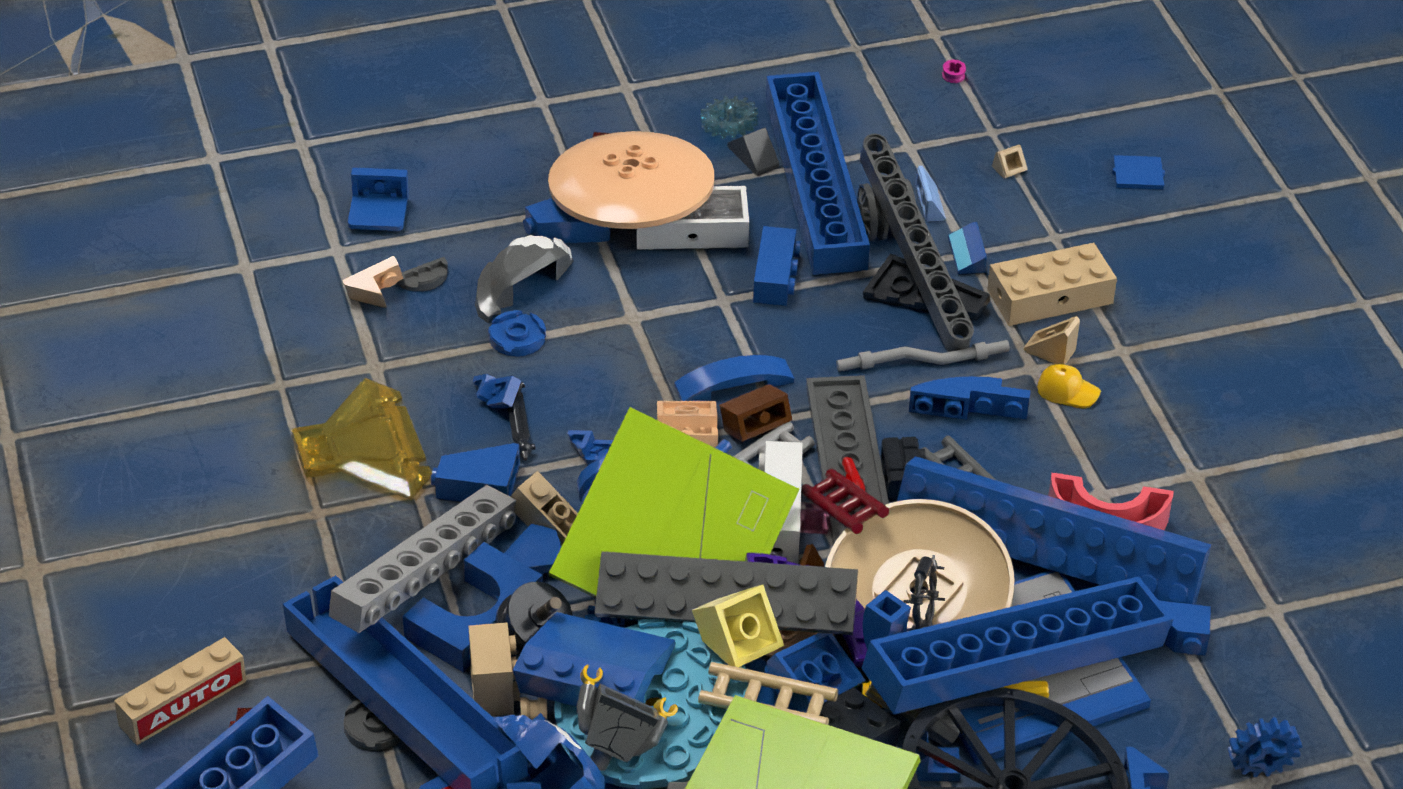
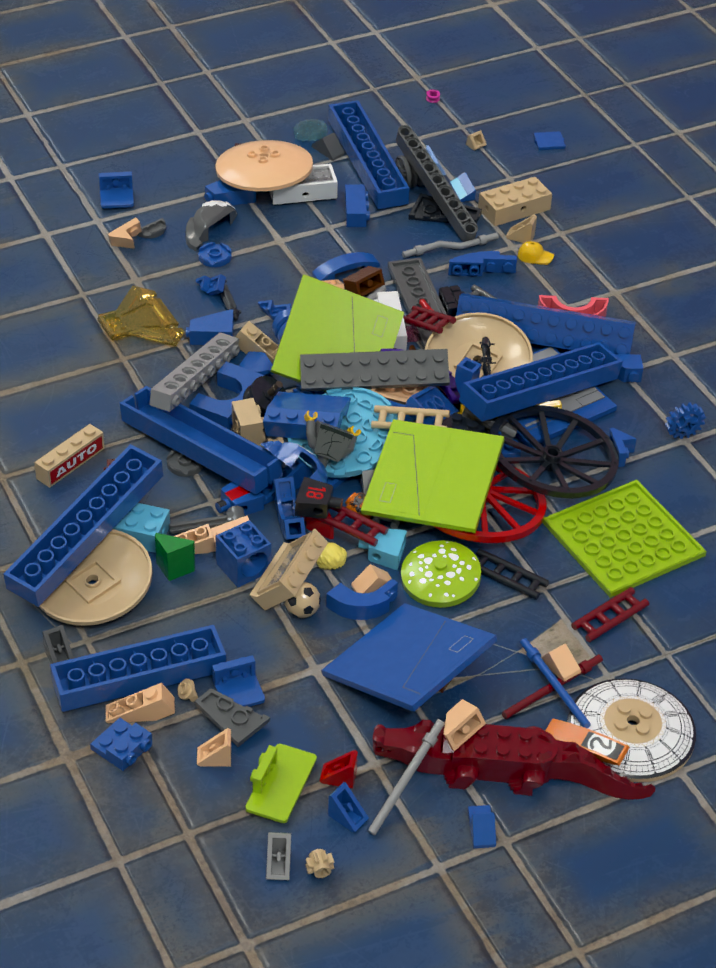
camera: 10 degrees left, 0 degrees up
(739, 626) = (386, 385): light yellow slope -> none

